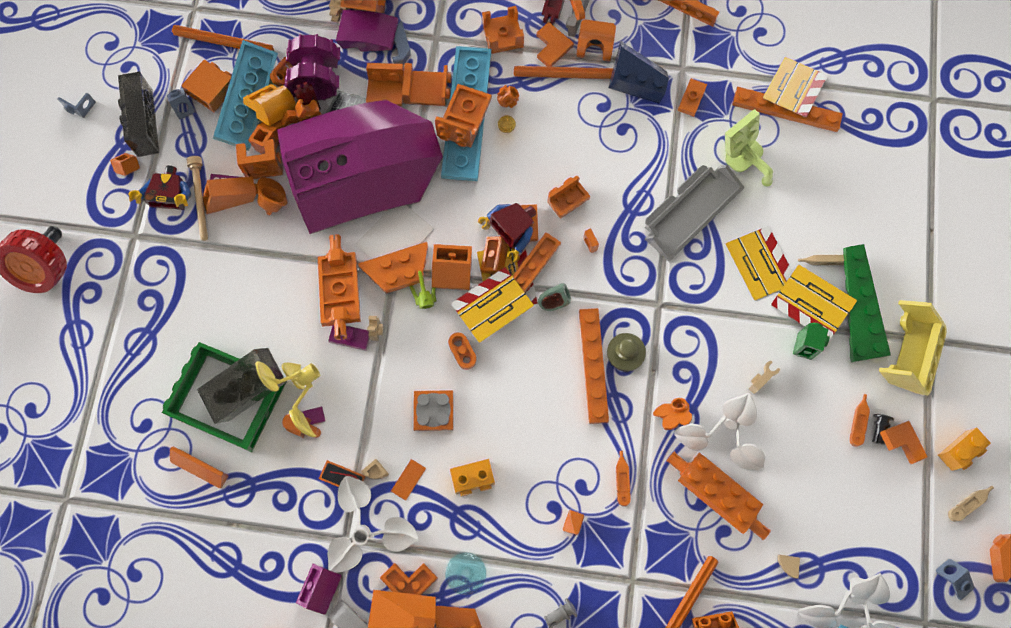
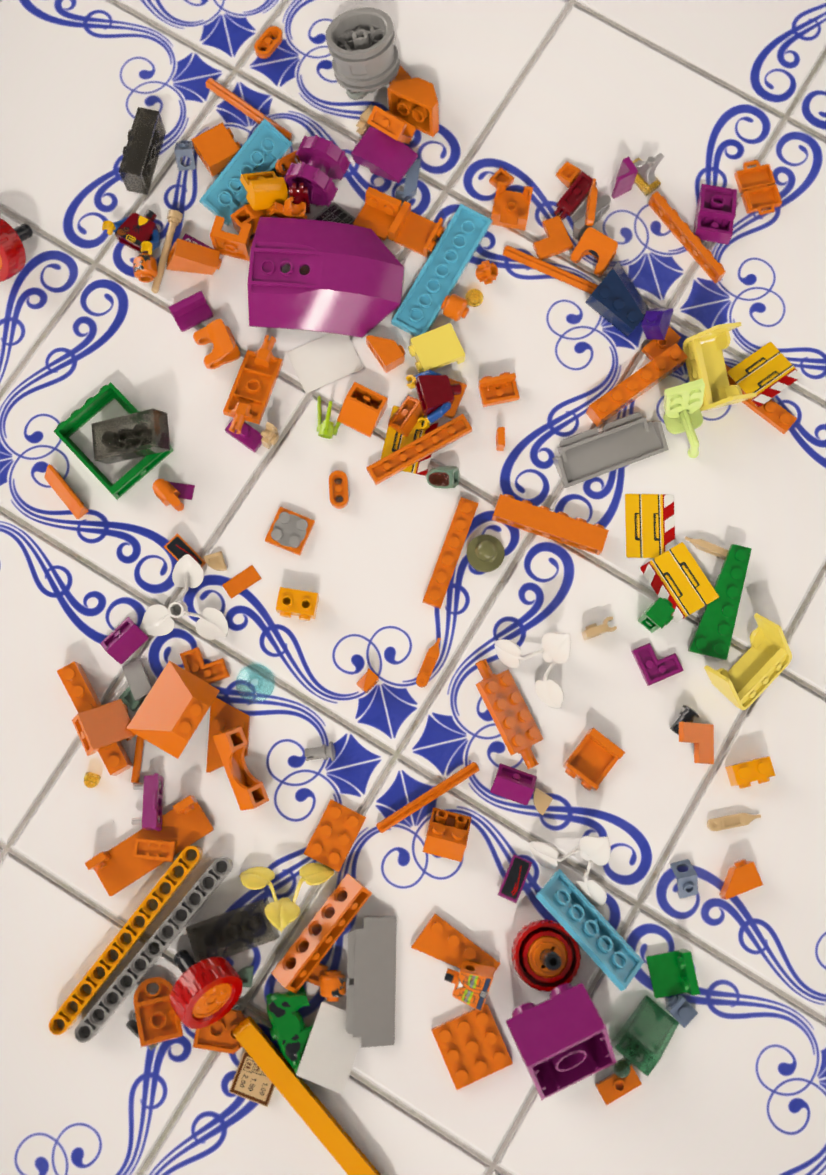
camera: 20 degrees right, 5 degrees up
(78, 109) = (92, 124): sand blue bracket -> none
(125, 164) = (112, 192): orange slope -> none
(186, 220) = (145, 267): none -> orange head
(247, 243) = (191, 311): none -> magenta panel
(270, 195) = (230, 275): orange piece -> none
(292, 258) = (225, 346): none -> orange piece
(300, 379) = (185, 452): light yellow plant -> none
(397, 268) = (314, 391): orange wing -> none
(449, 205) = (386, 352): none -> orange slope
(463, 116) = (435, 273): orange bracket -> none
(479, 8) = (501, 175): none -> orange tile
(492, 304) = (383, 459): yellow sticker -> none
(494, 139) = (455, 307): none -> orange head
(494, 183) = (436, 348): none -> light yellow panel
(673, 300) = (550, 524): none -> orange brick
(674, 413) = (501, 626): orange plate -> none
(681, 80) = (656, 323): none -> dark purple slope
(689, 142) = (636, 385): none -> orange brick
(741, 96) = (707, 362): none -> light yellow windscreen
(757, 560) = (513, 784): none -> magenta panel
(817, 503) = (592, 759): none -> orange panel
(829, 392) = (654, 669): none -> magenta tile
(860, 423) = (667, 707): orange piece -> none

